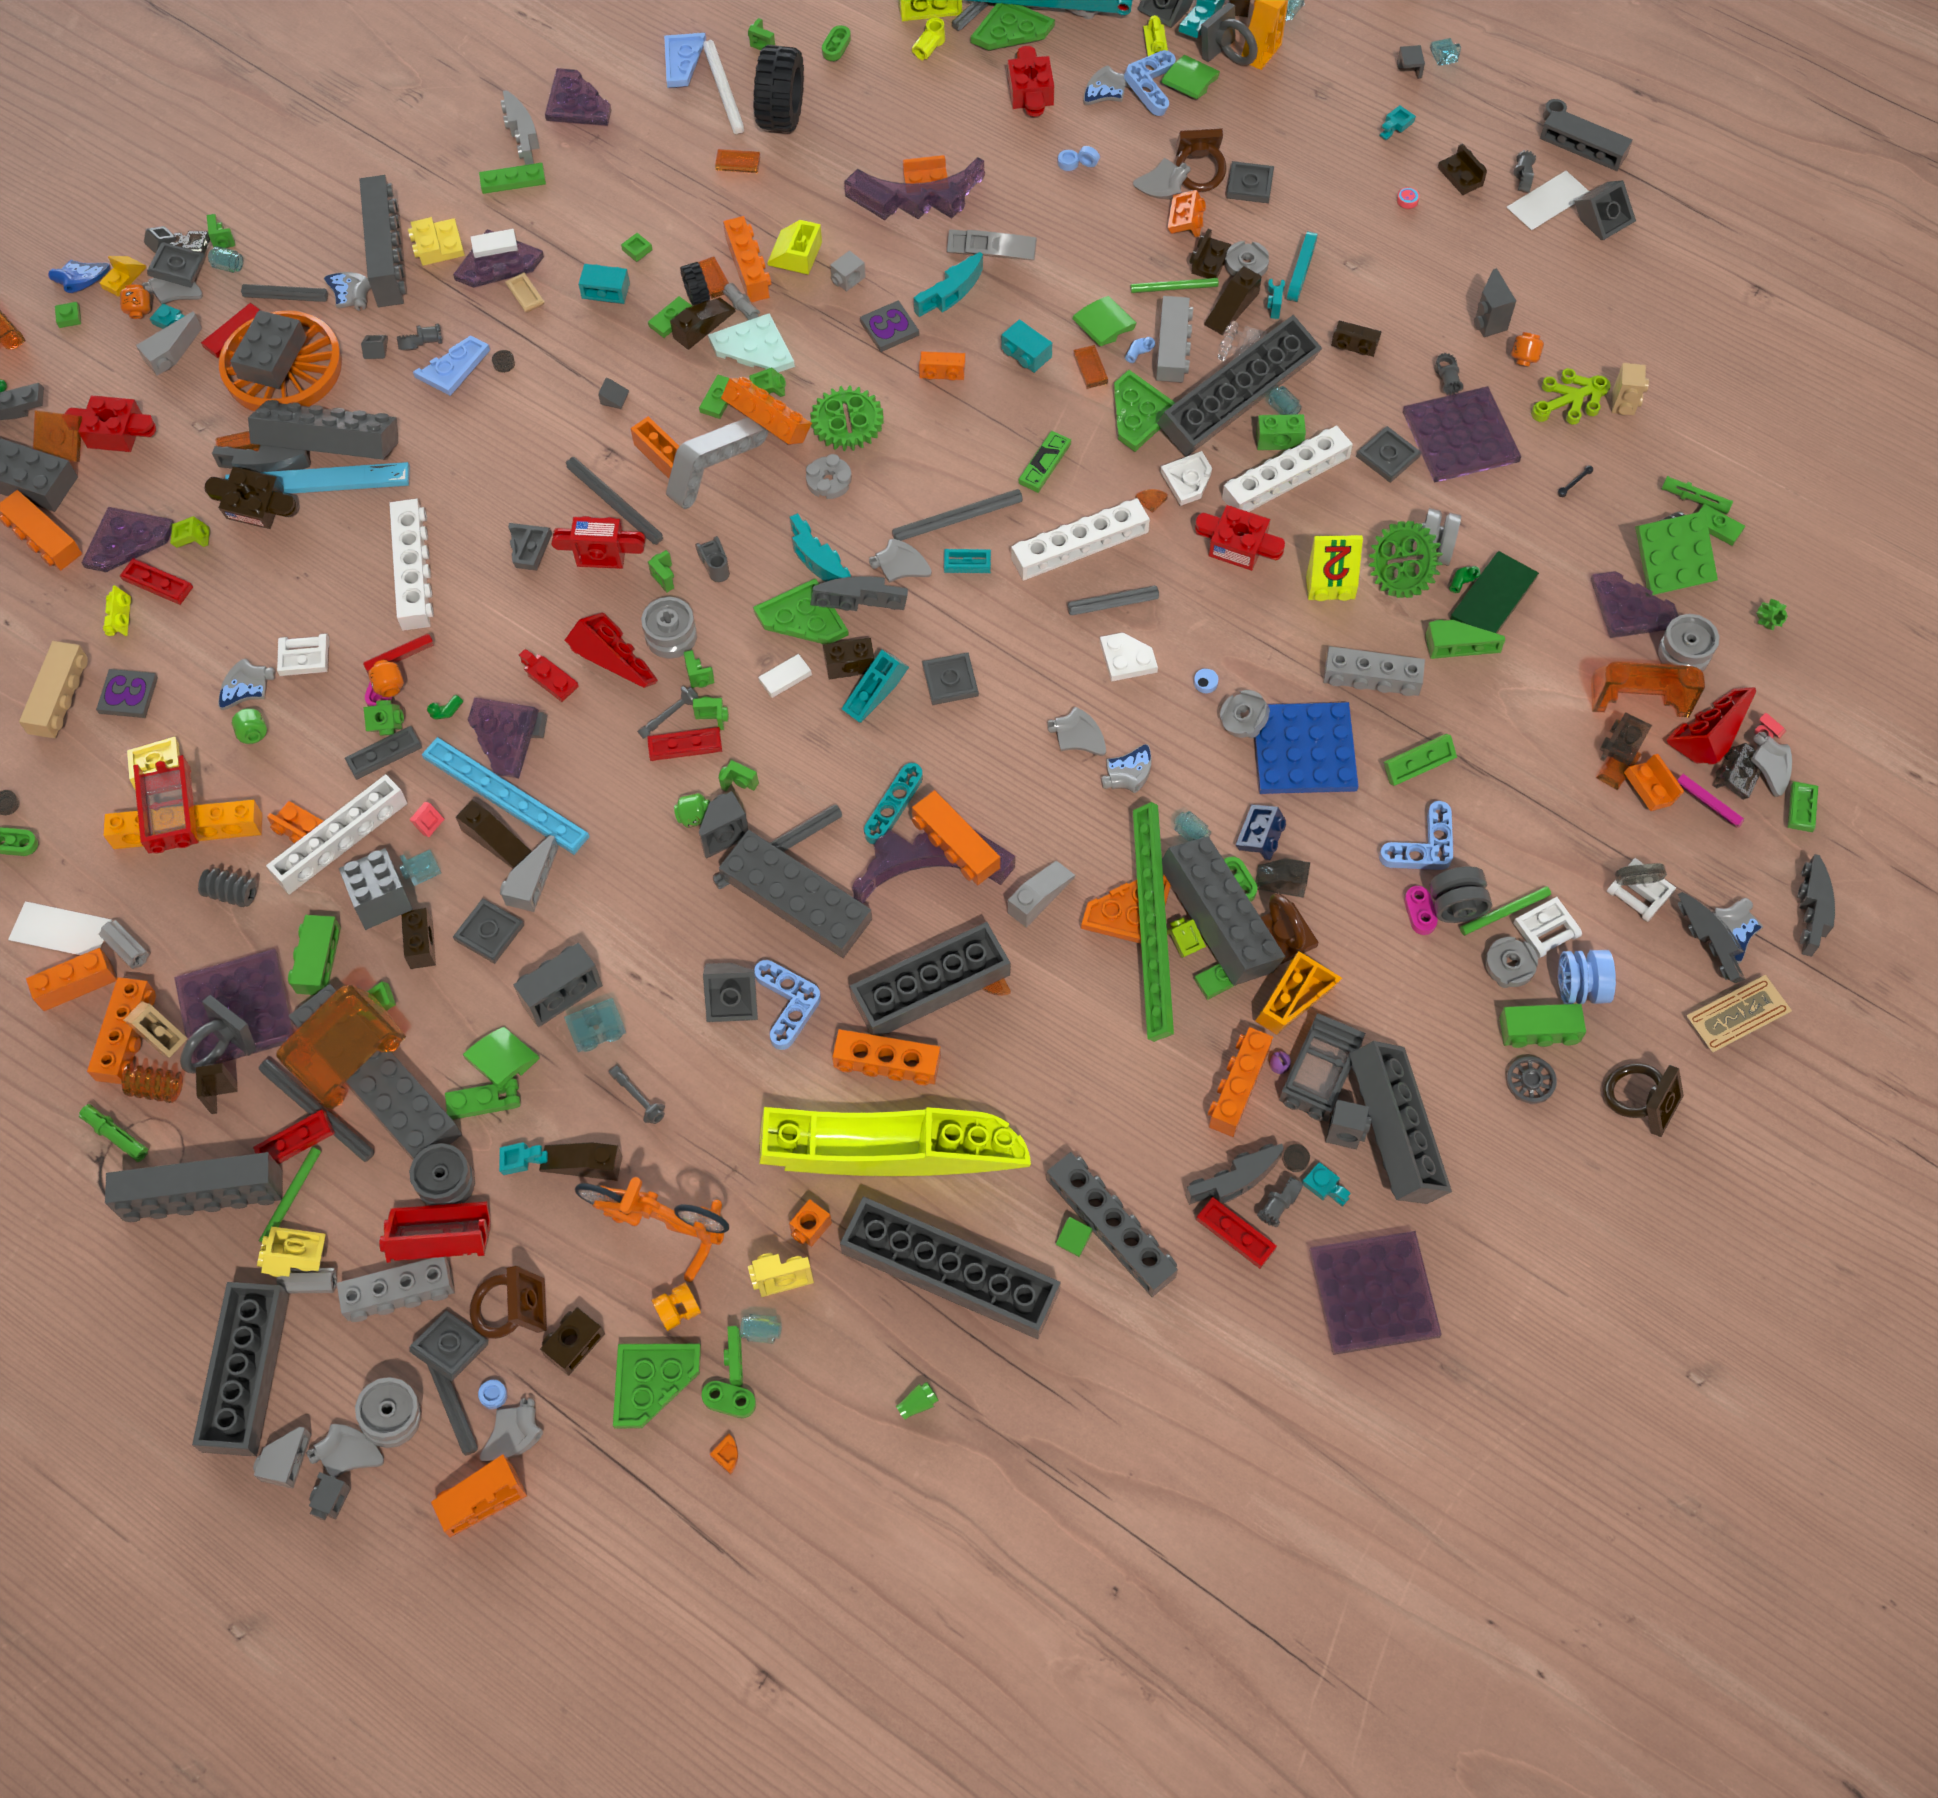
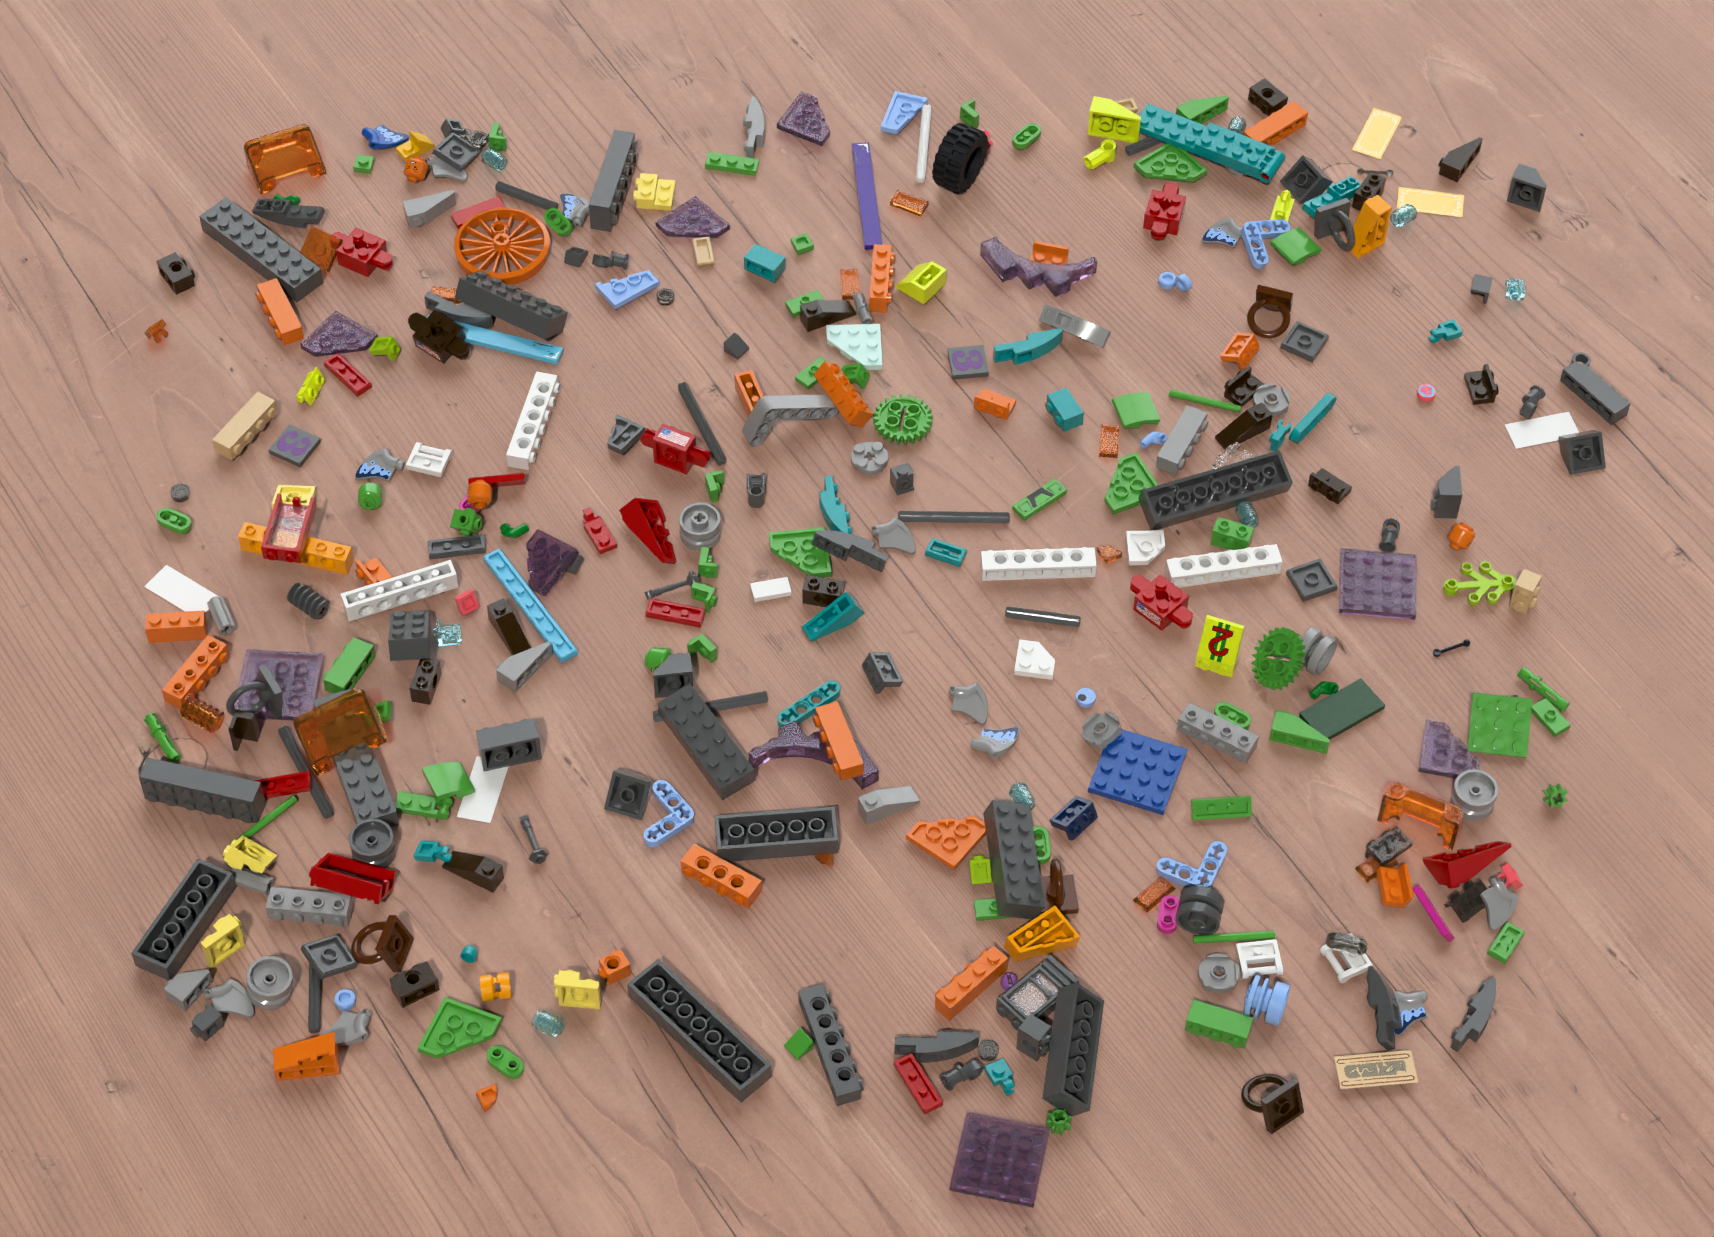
camera: 20 degrees right, 10 degrees down
(155, 1029) = (218, 677): tan brick -> none
(165, 316) = (433, 187): teal plate -> none
(268, 349) = (495, 234): dark grey brick -> none
(309, 1374) = (224, 942): none -> light yellow plate
(338, 311) = (559, 222): none -> bright green plate
(488, 931) = (477, 693): dark grey tile -> none
(494, 243) = (695, 208): white tile -> none
(554, 1069) = (487, 787): none -> white sticker
(601, 1014) = (523, 782): clear light blue brick -> none
(623, 1273) = (469, 954): none -> teal hinge
(685, 167) = (866, 195): none -> tile
(686, 1219) = (524, 925): orange piece -> none
(695, 283) = (832, 283): black tyre -> none
(733, 1356) = (521, 1034): bright green plate -> none
(847, 271) = (953, 311): light grey brick -> none
(878, 490) = (901, 479): none -> dark grey brick
(890, 1142) = (695, 933): neon yellow slope -> none
(918, 1400) = (637, 1110): bright green cone -> none
(950, 678) = (892, 632): dark grey tile -> none
(960, 732) = (881, 671): none -> dark grey bracket
(1153, 923) = (958, 849): bright green plate -> none
(1163, 180) = (1234, 319): light grey arm -> none
(1283, 877) = (1075, 855): clear smoke slope -> none
(1380, 643) = (1233, 714): none -> bright green plate
(1392, 891) = (1153, 894): none -> clear orange tile
(1426, 1215) = (1058, 1121): none -> bright green gear
(1531, 1080) = (1192, 1060): flat silver wheel -> none

